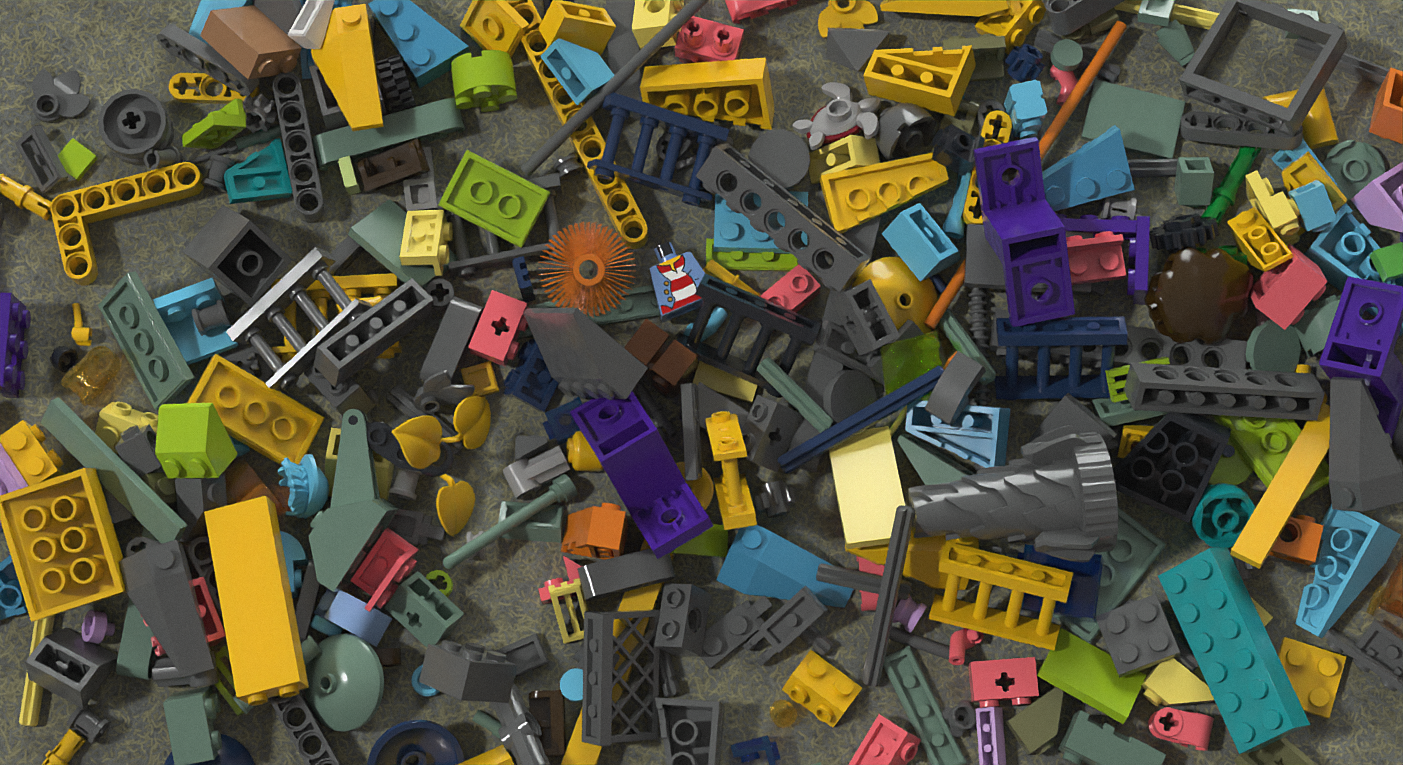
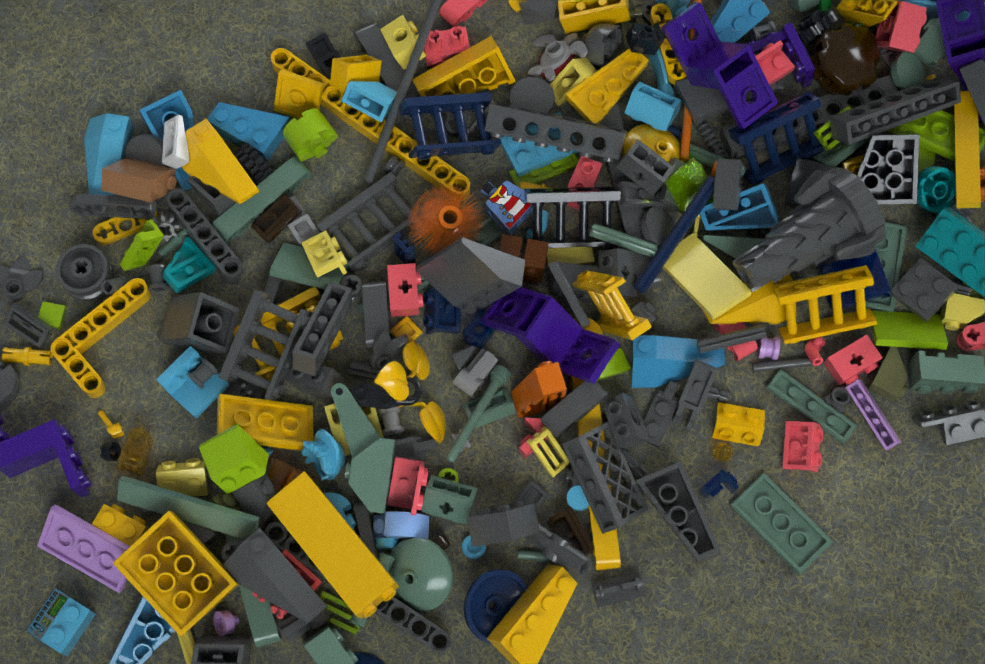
camera: 30 degrees left, 5 degrees down
(138, 449) = (198, 483): dark grey brick -> none
(145, 340) = (163, 411): sand green tile -> none
(349, 175) = (248, 238): yellowish green tile -> none
(494, 199) = (357, 207): lime tile -> none
(581, 454) = (502, 344): yellow head -> none
(888, 595) = (754, 338): dark grey axle -> none

